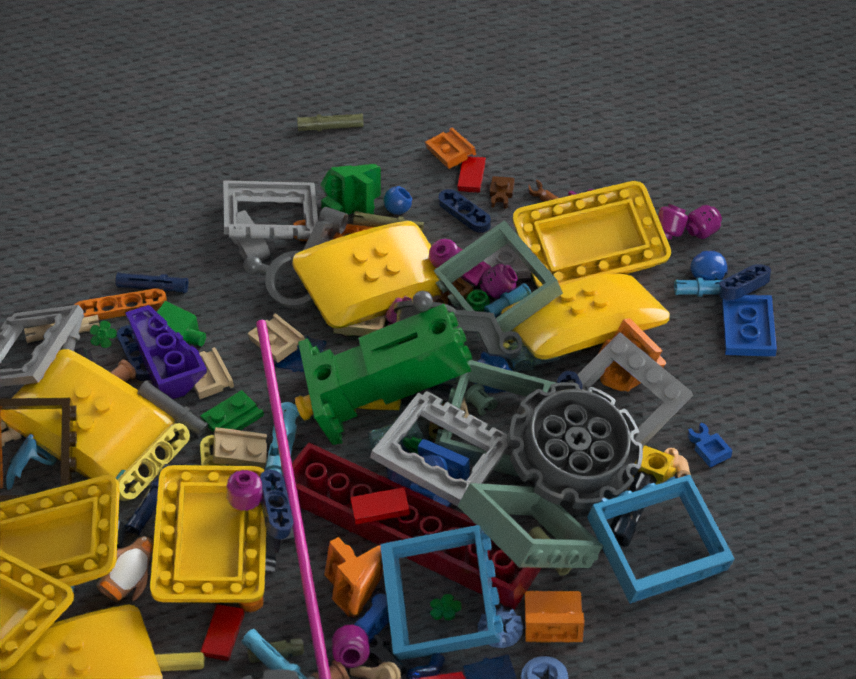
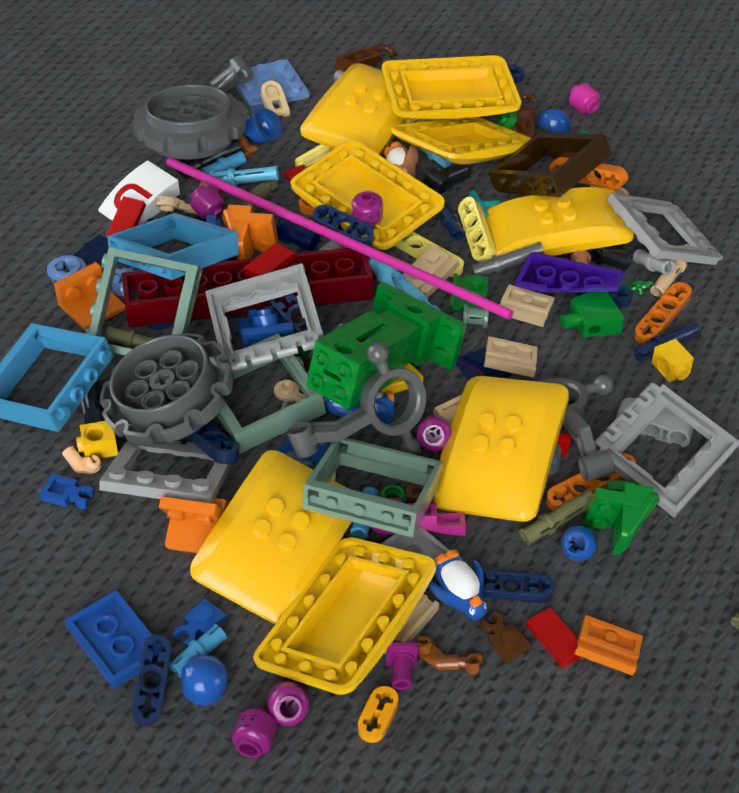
camera: 135 degrees right, 0 degrees up
(173, 261) = (672, 360): none -> yellow brick
(252, 384) = (475, 316): none -> sand green bush
(294, 572) = (297, 235): none -> clear blue piece
(442, 251) = (457, 498): magenta head -> none
(498, 211) = (459, 585): none -> animal
(681, 306) = (199, 621): none -> blue plate

